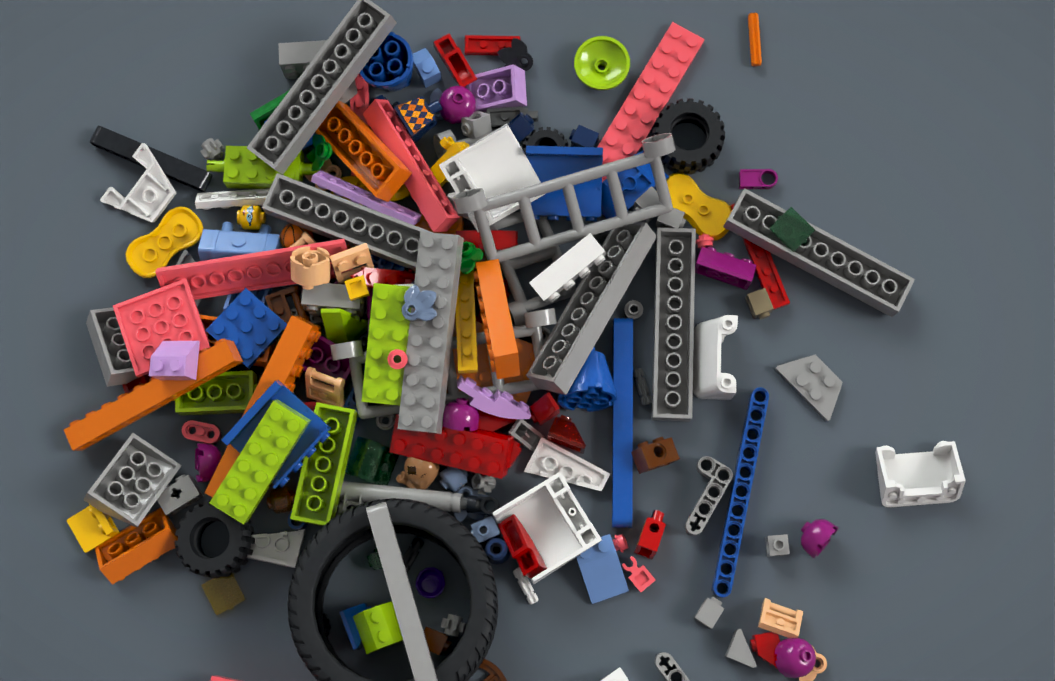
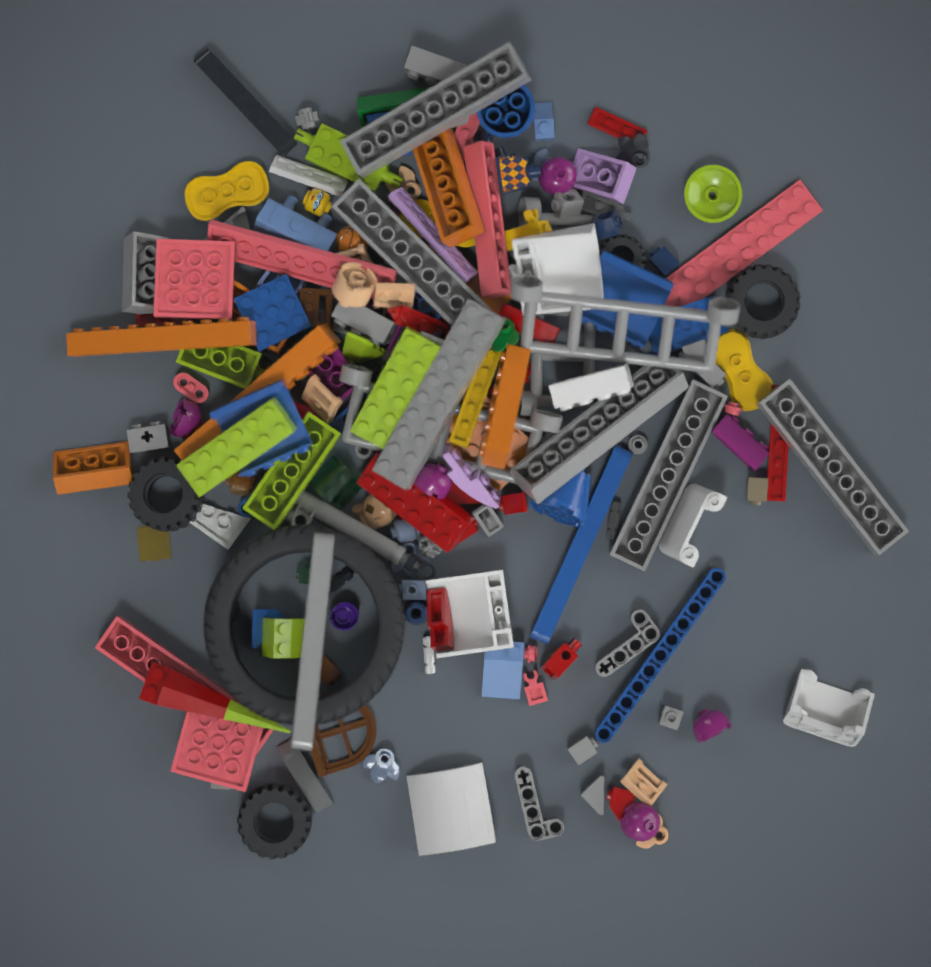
camera: 20 degrees right, 10 degrees up
(92, 528) = (59, 432): yellow bracket -> none
(132, 481) = (112, 409): light grey slope -> none
(149, 194) = (230, 138): white wing -> none
(175, 360) = (196, 319): lavender slope -> none
(320, 153) = (407, 170): green plate -> none
(357, 288) = (388, 324): yellow plate -> none
(402, 354) = (400, 402): coral plate -> none
(421, 302) = (441, 366): sand blue plate -> none
(453, 625) = (349, 662): light grey gear -> none
(454, 60) = (574, 130): red slope -> none
(551, 459) = (504, 555): white wing -> none
(566, 434) = (524, 534): clear red slope -> none
(664, 454) = (607, 588): reddish brown brick -> none
(752, 178) = (805, 368): magenta piece -> none
(754, 37) = (871, 230): orange axle -> none
(792, 229) = (816, 437): clear green piece -> none
(813, 382) = (773, 584): light grey wing -> none

